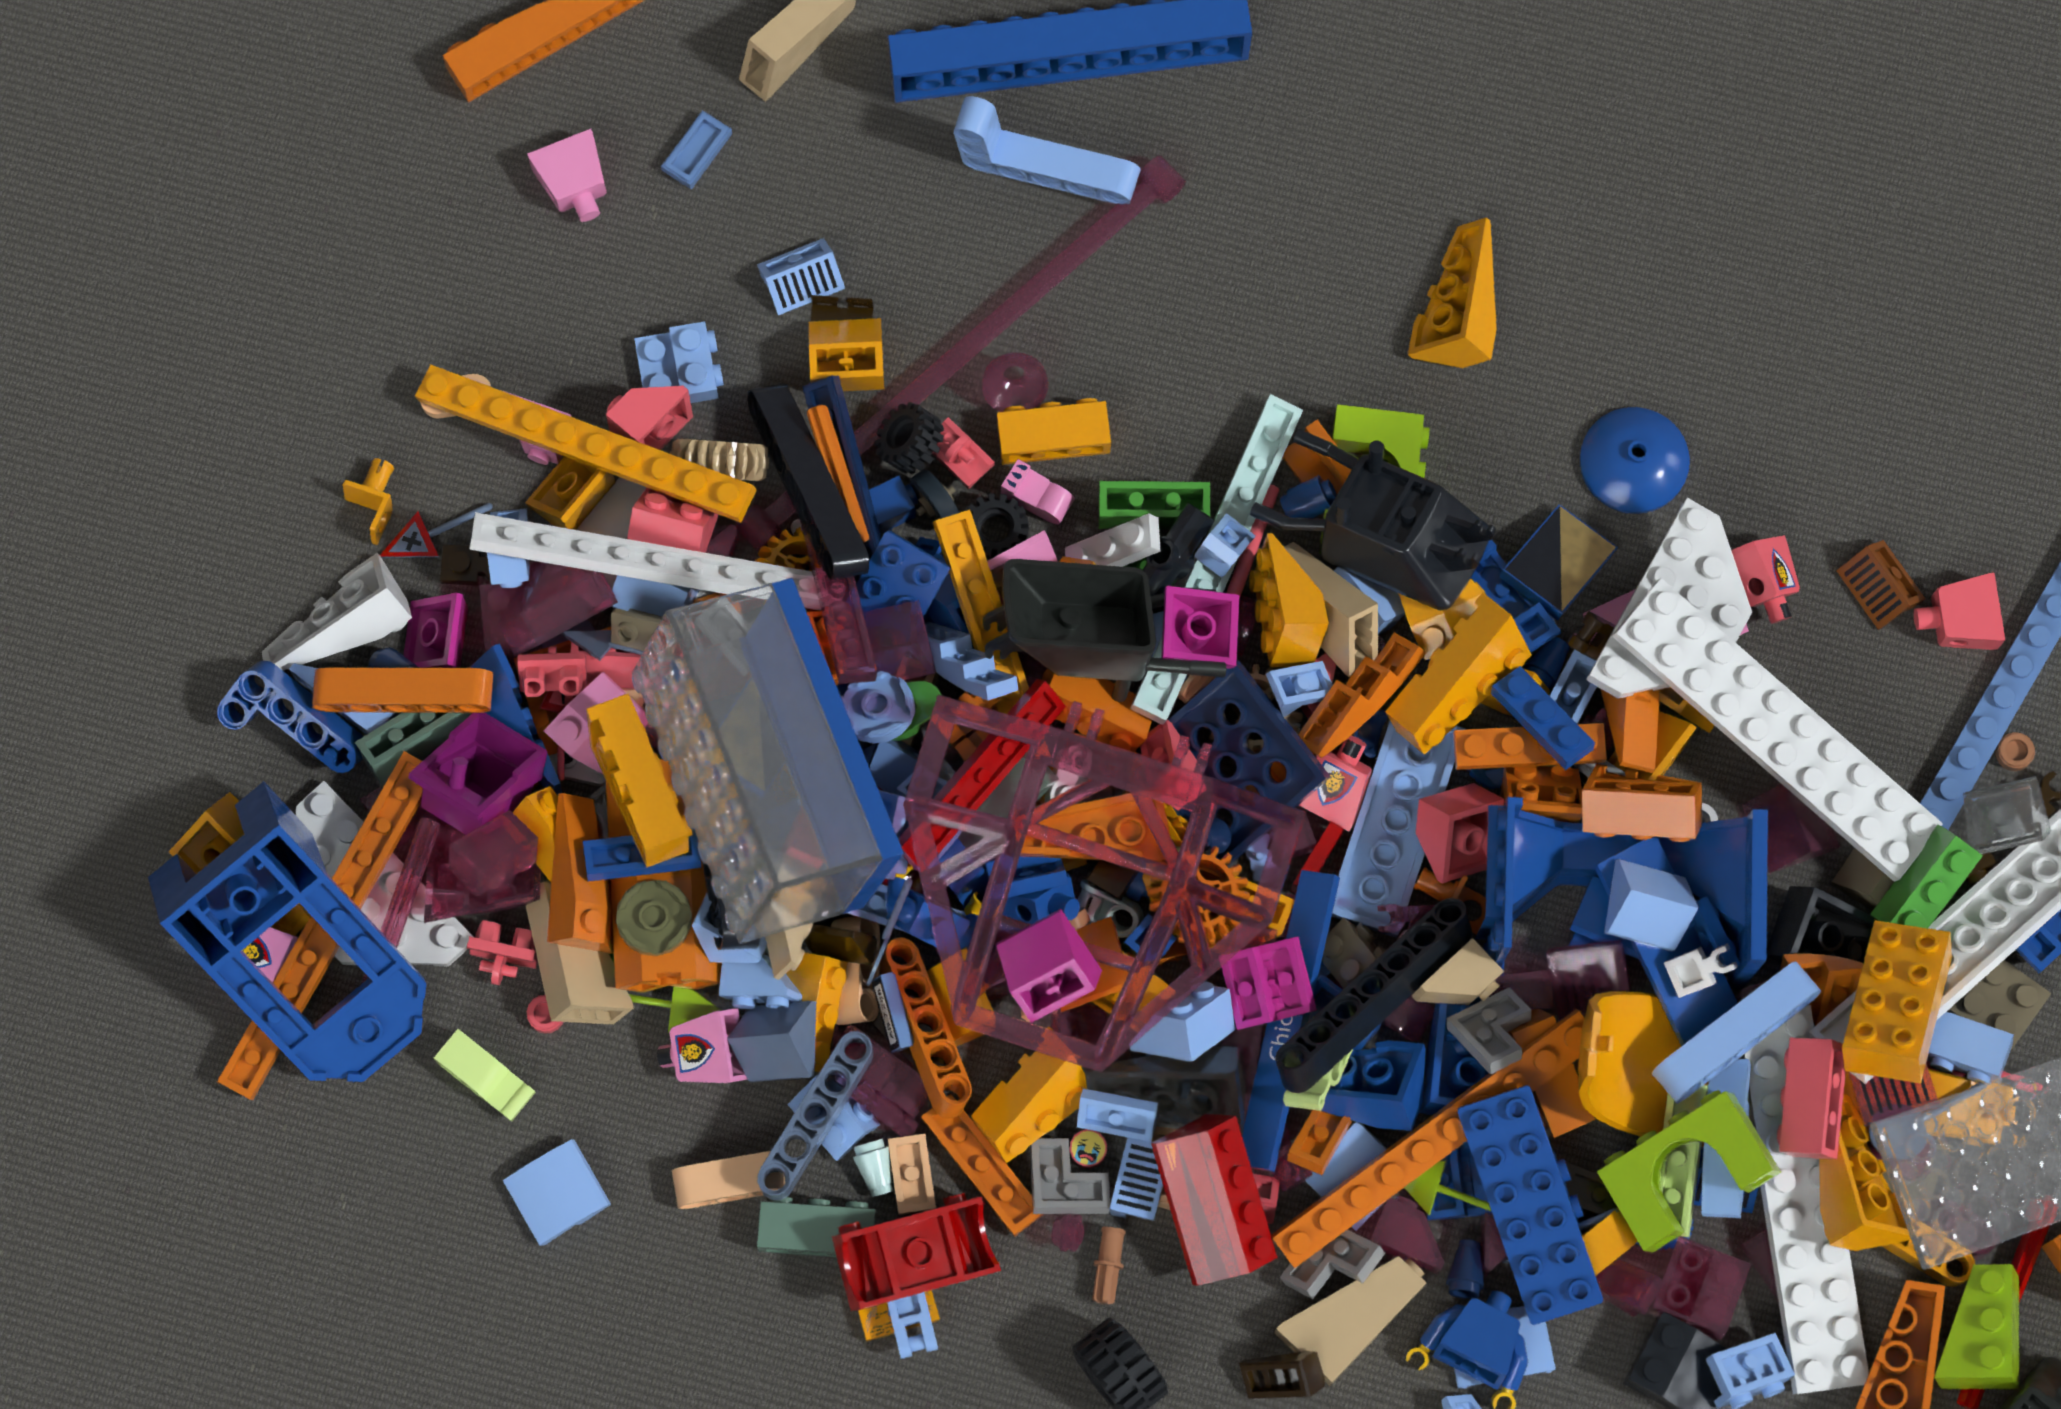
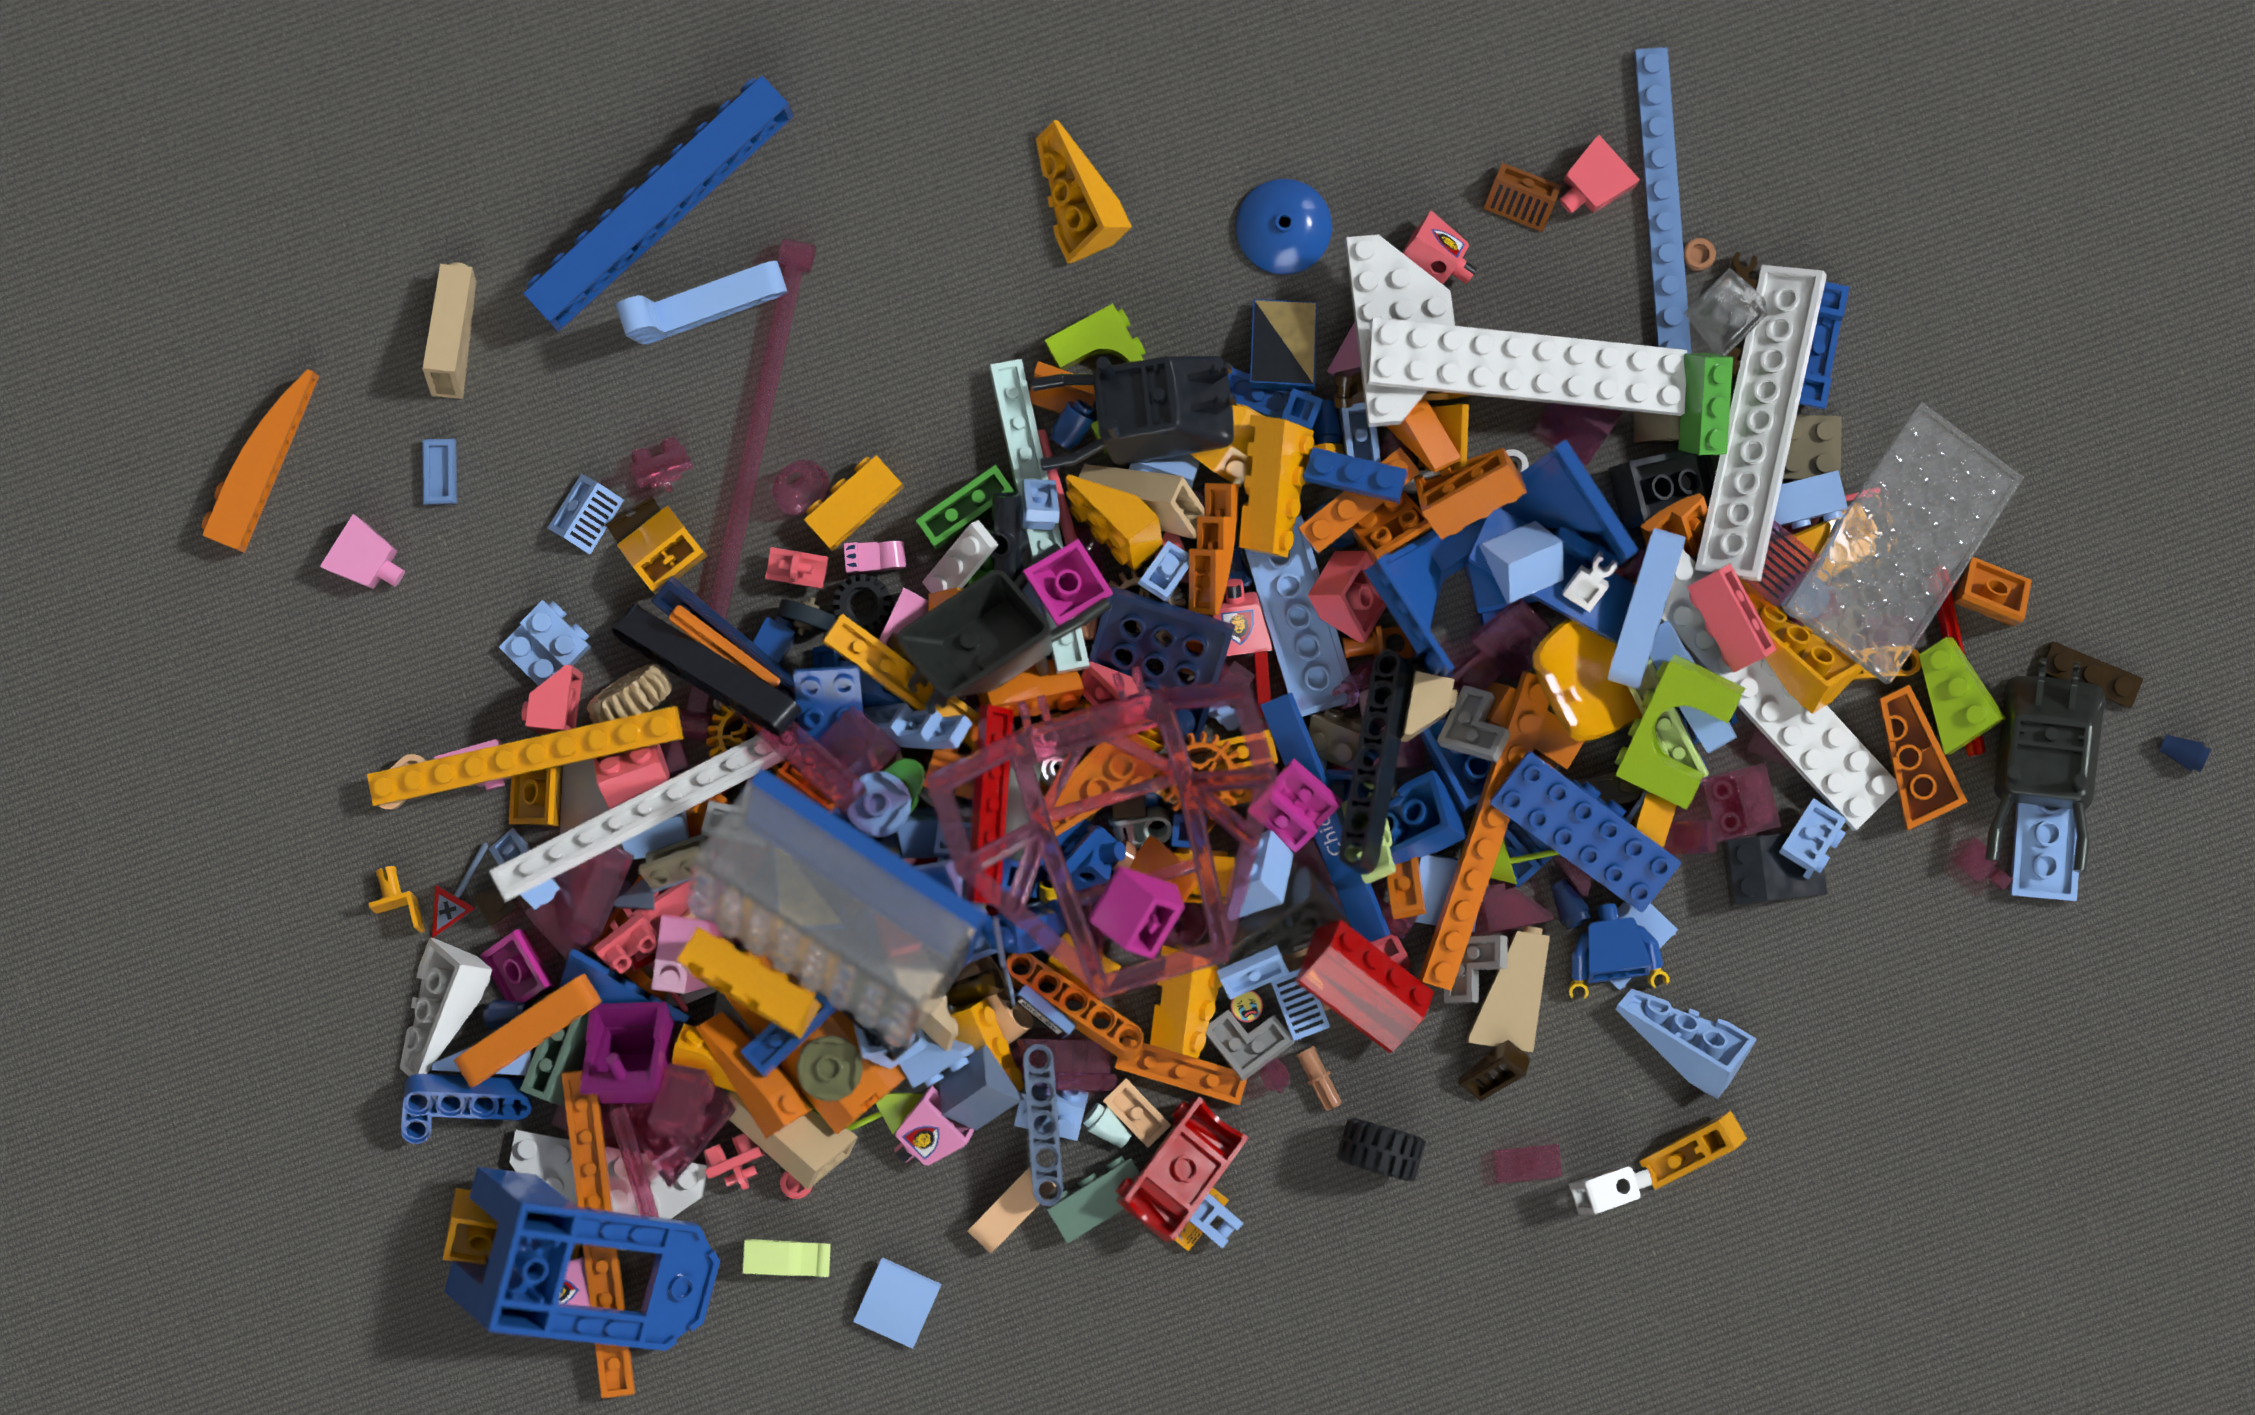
camera: 30 degrees left, 10 degrees up
(899, 280) = (661, 468): none -> clear pink hips
(914, 424) = (742, 583): black tyre -> none
(1897, 1001) = (1744, 507): light orange brick -> none

